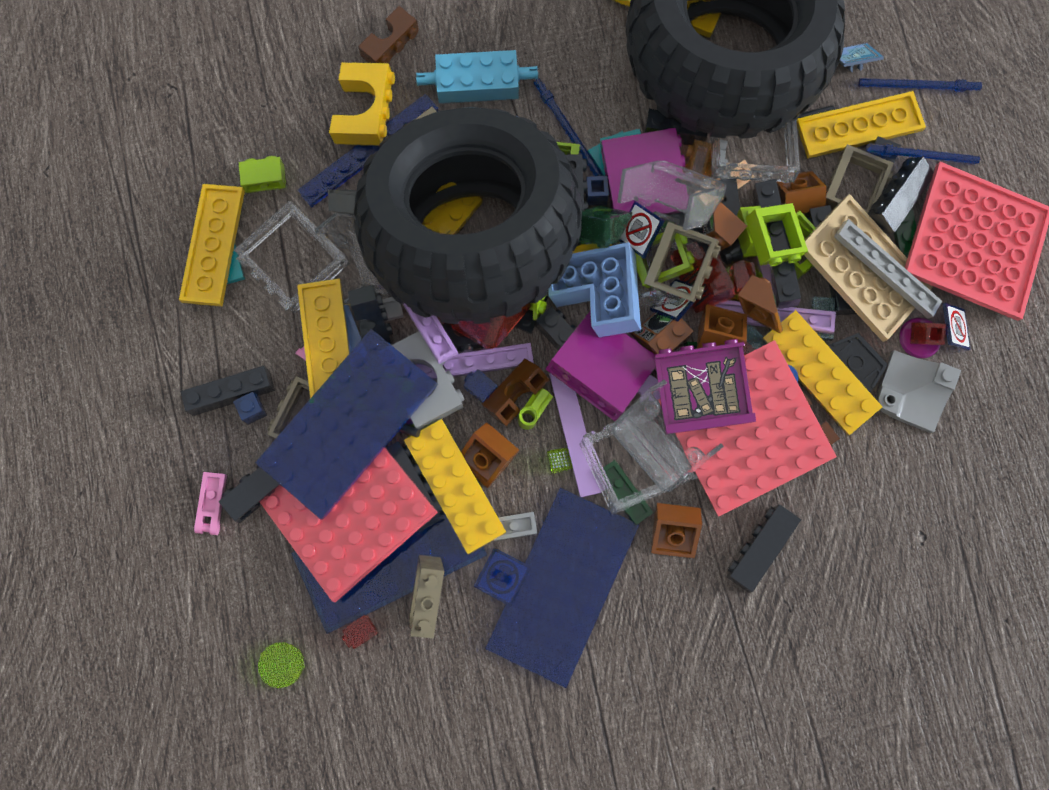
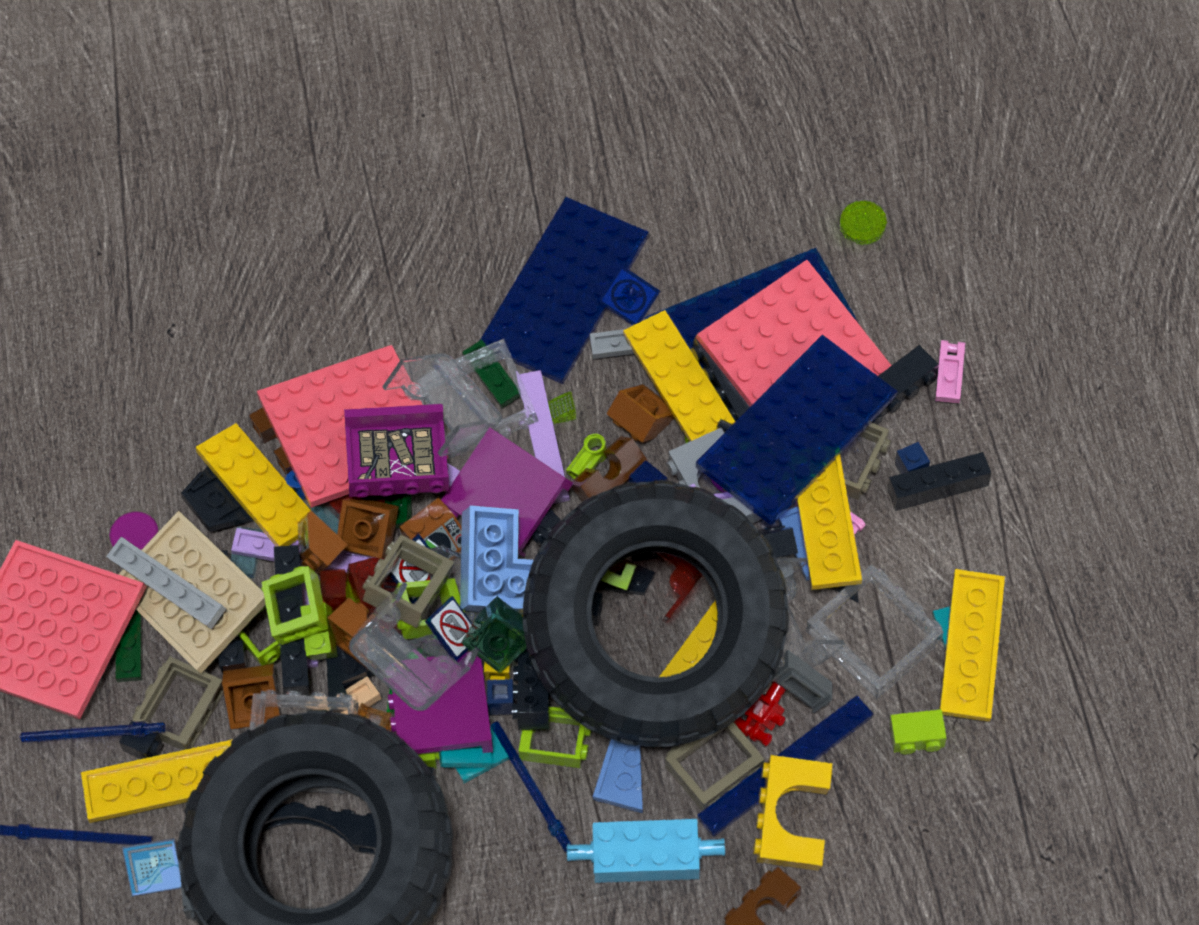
camera: 175 degrees left, 15 degrees down
(359, 632) = (780, 246): clear red brick -> none
(426, 596) = (708, 264): dark tan window -> none
(676, 530) = (438, 335): dark orange slope -> none
(763, 547) = (346, 317): black brick -> none
(901, 194) = (131, 679): brick -> none
(916, 390) = (152, 473): light grey slope -> none
(928, 333) = (129, 522): clear red brick -> none
(956, 327) = (94, 533): piece -> none

